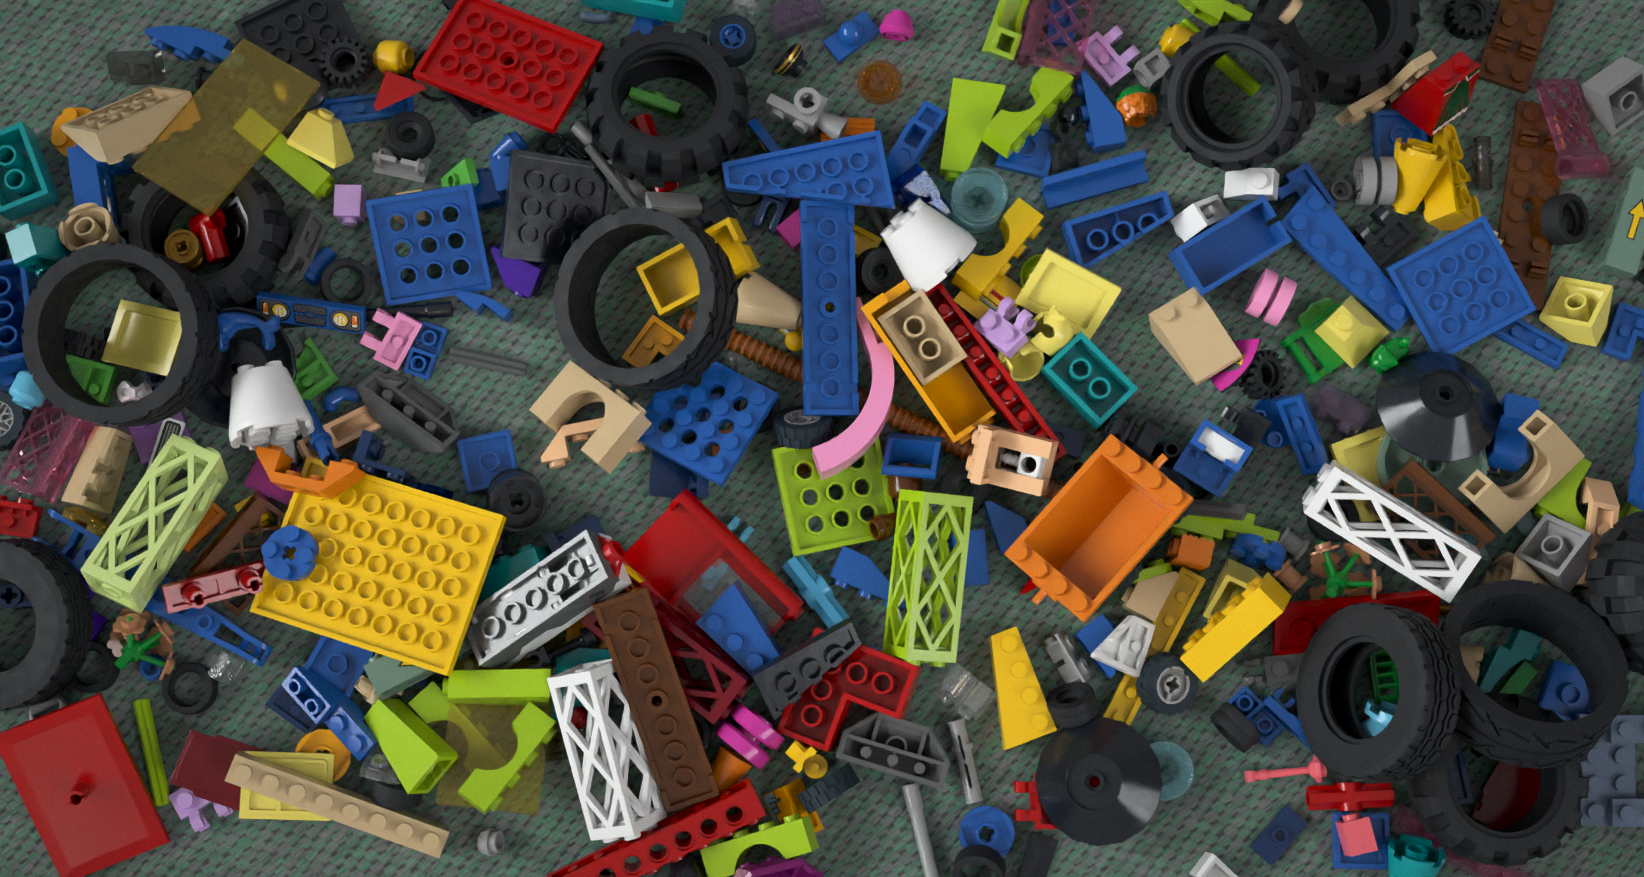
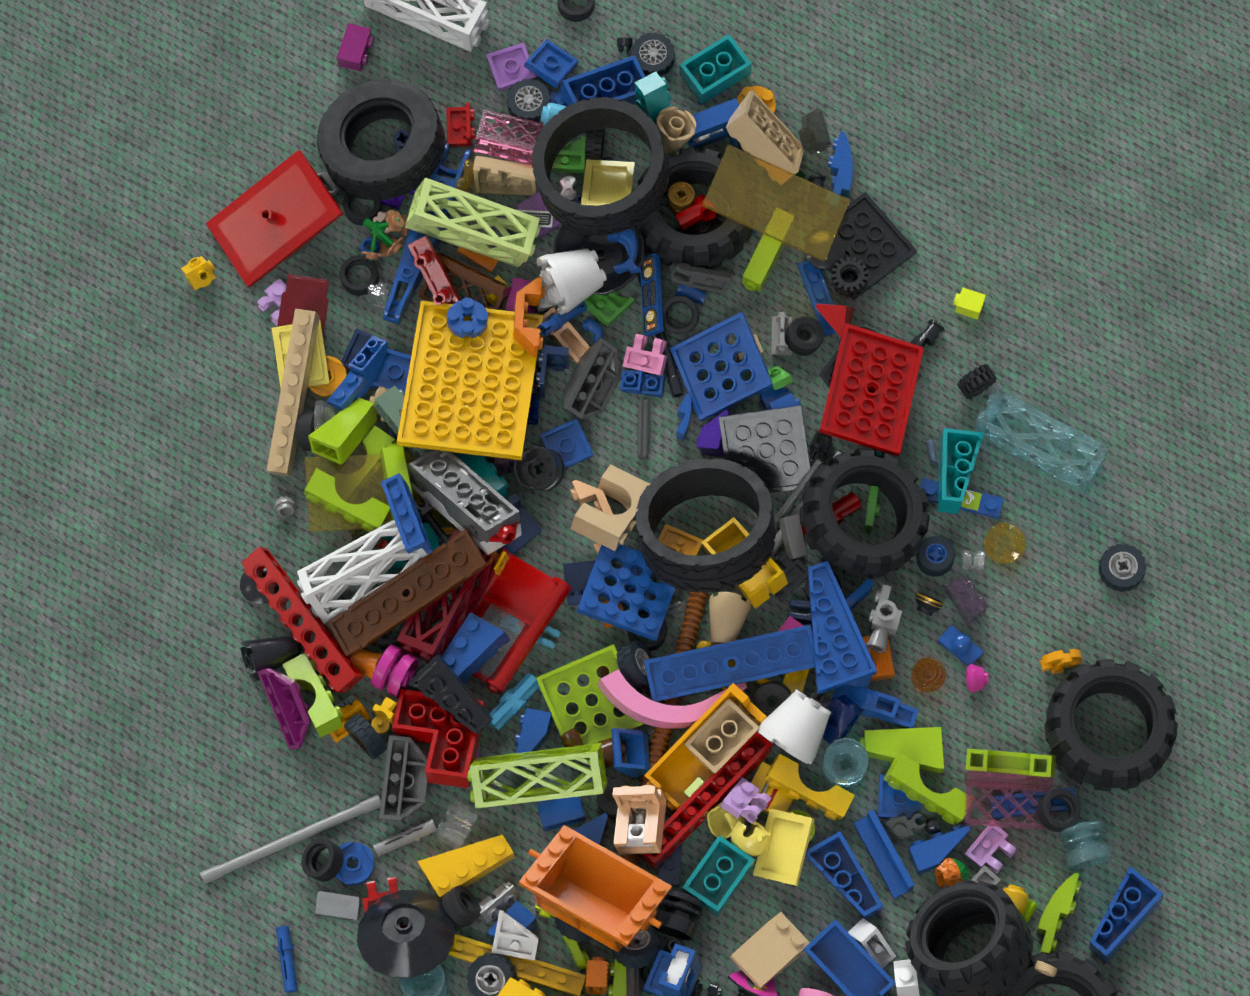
camera: 80 degrees right, 10 degrees down
(151, 752) = (309, 260): lime axle -> none
(322, 138) = (785, 273): light yellow slope -> none
(349, 204) = (742, 302): lavender brick -> none
(393, 56) = (864, 311): yellow head -> none
(509, 142) = (811, 409): blue cone -> none
(554, 681) = (406, 514): none -> blue fence
(975, 386) = (693, 787): none -> yellowish green tile
(1149, 596) = (558, 953): tan slope -> none

